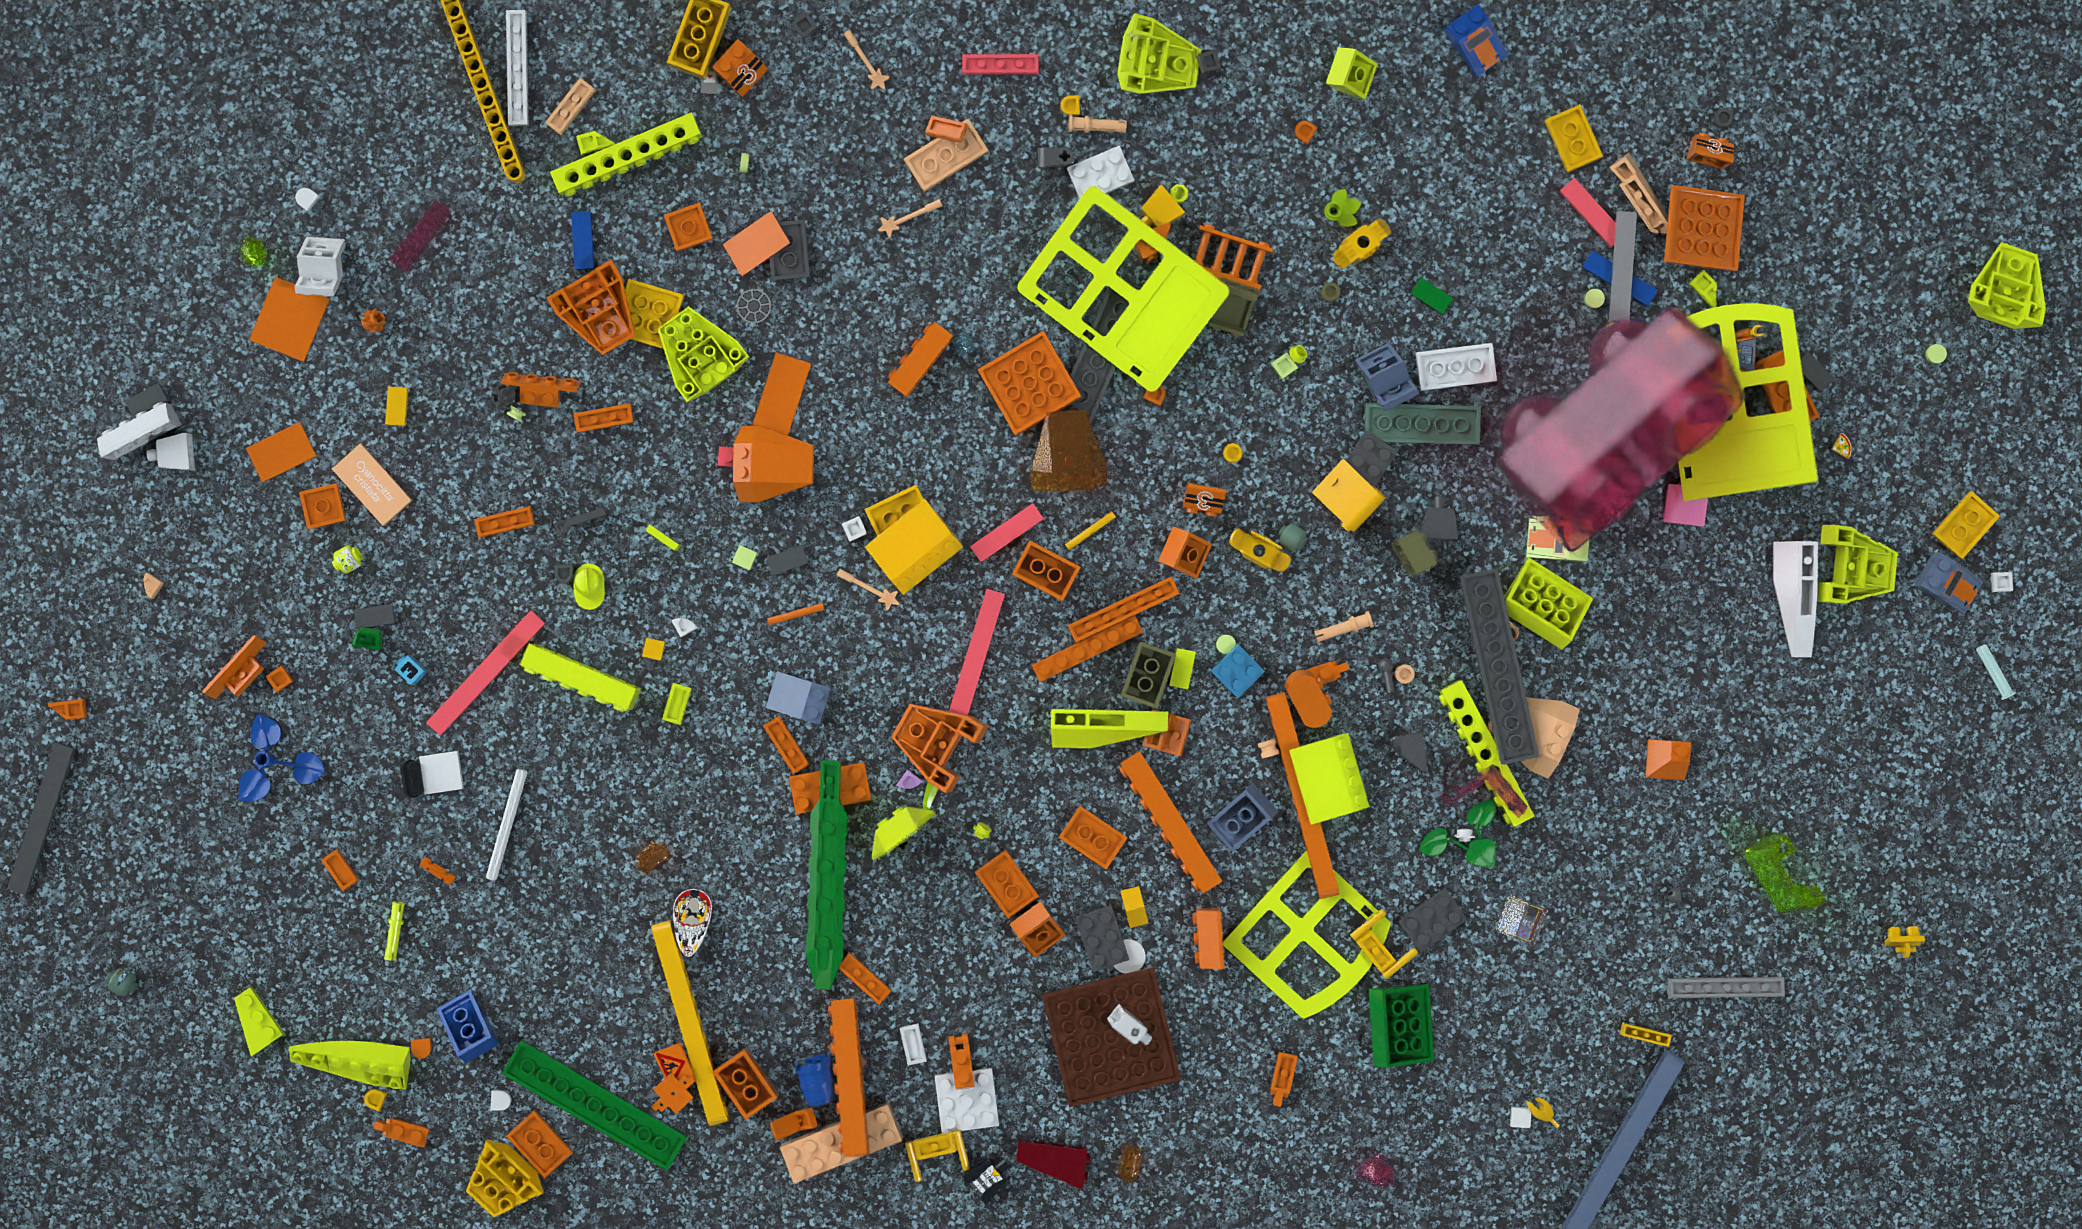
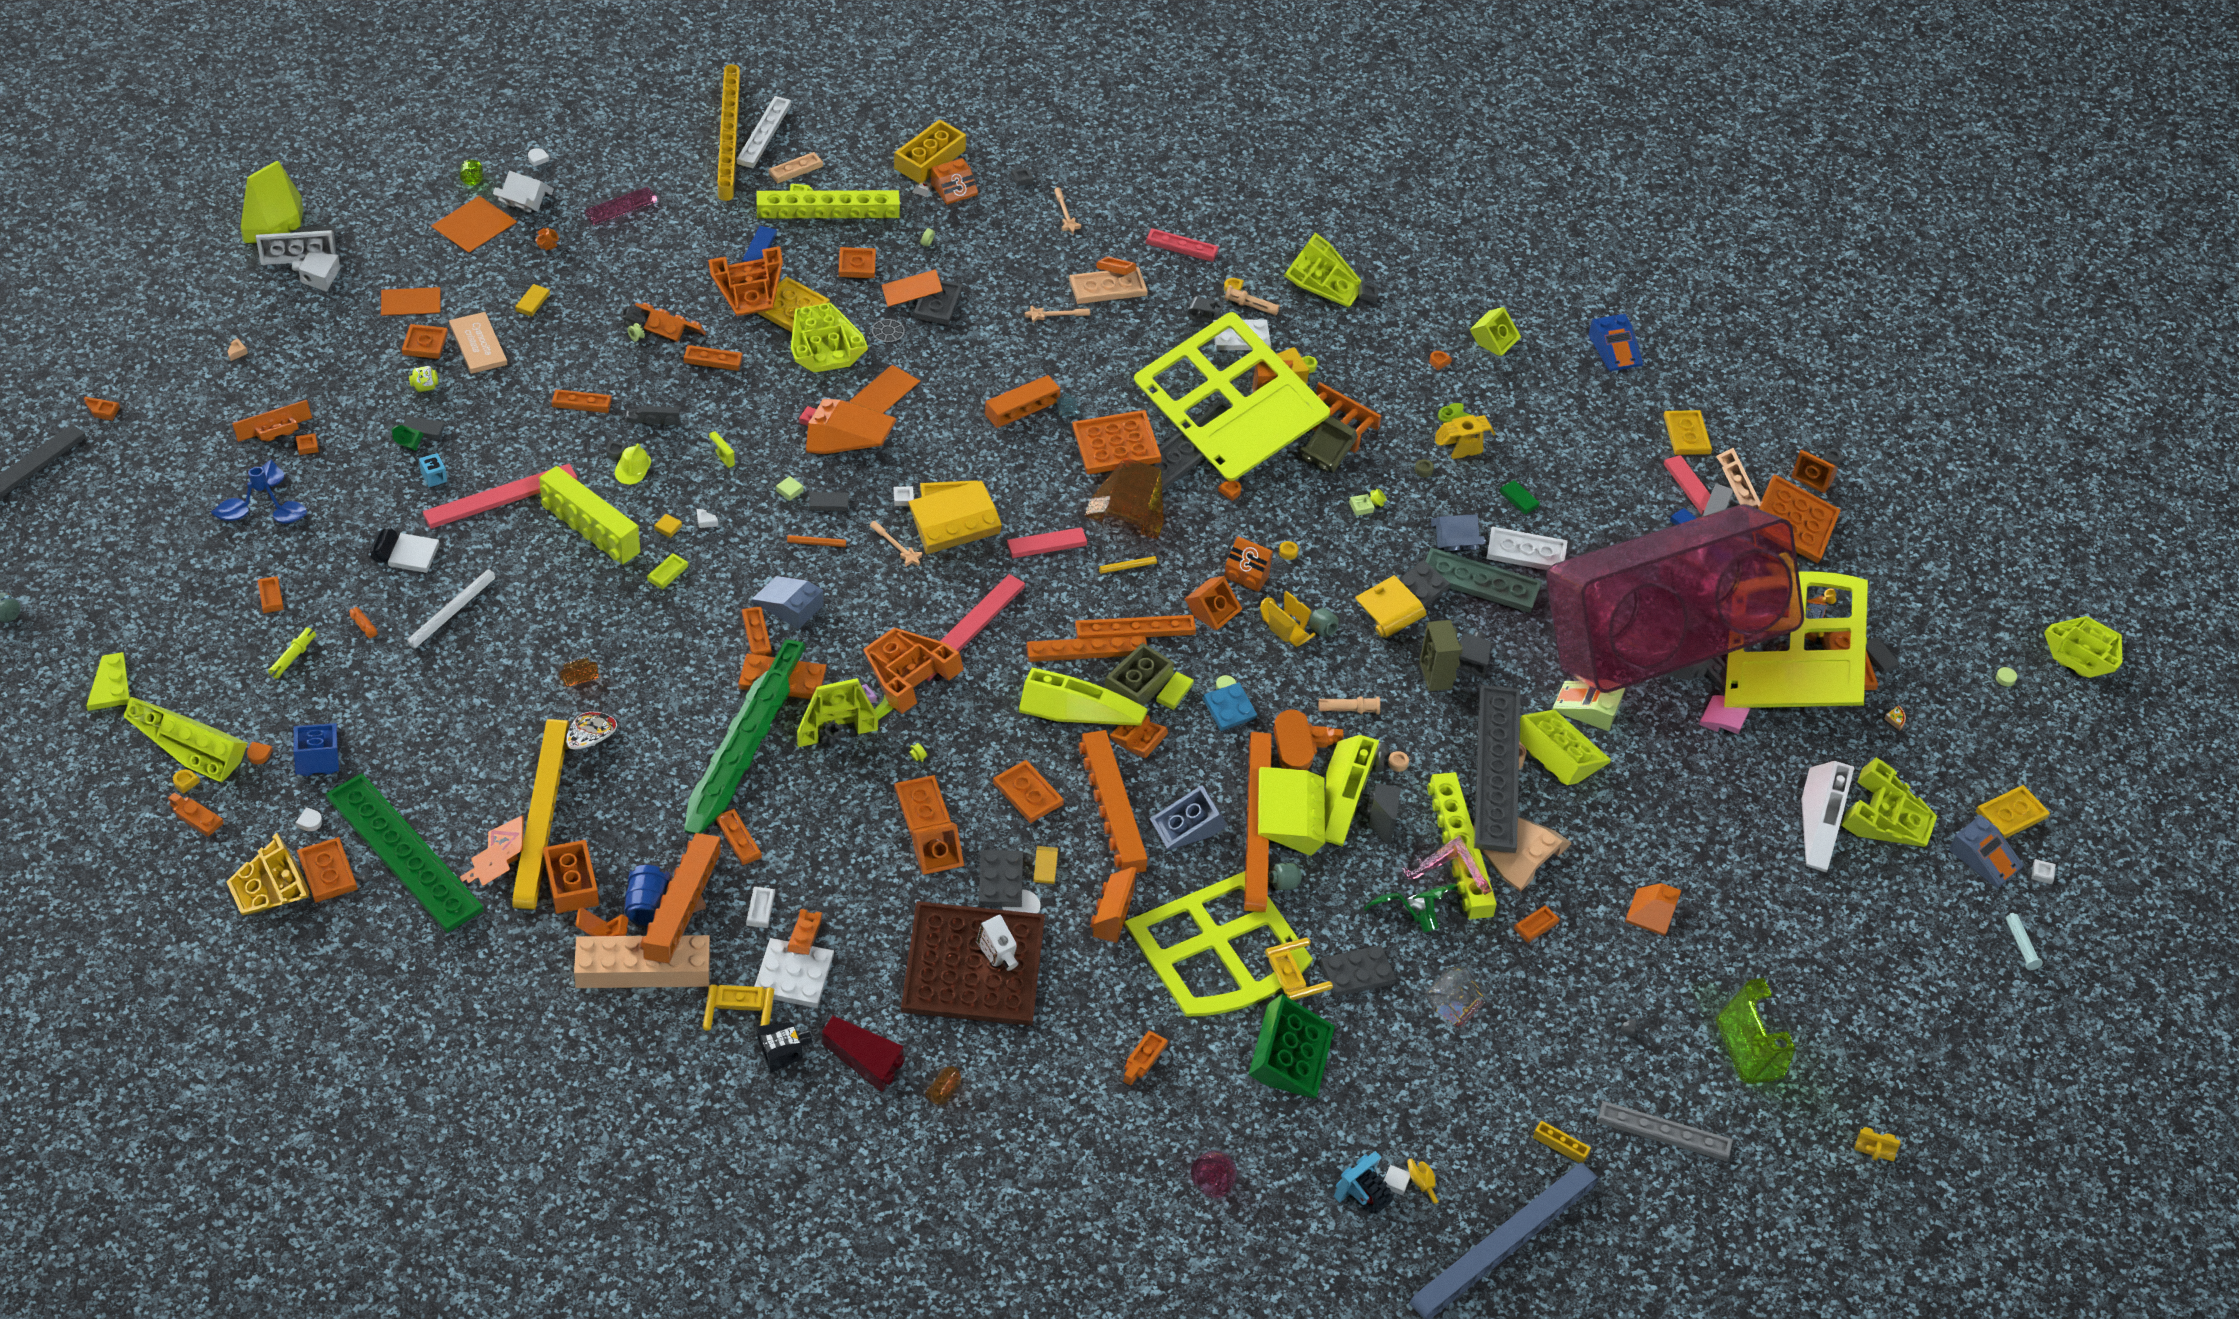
camera: 15 degrees right, 40 degrees down
(93, 399) = (270, 204): none -> neon yellow wedge
(1046, 570) = (1072, 573): orange brick -> none
(1268, 748) = (1237, 773): light nougat wheel -> none
(1343, 848) = (1285, 876): none -> sand green head
(1367, 726) = (1345, 784): none -> neon yellow wedge
(1497, 1142) = (1365, 1185): none -> plate
(1570, 811) = (1536, 924): none -> orange tile

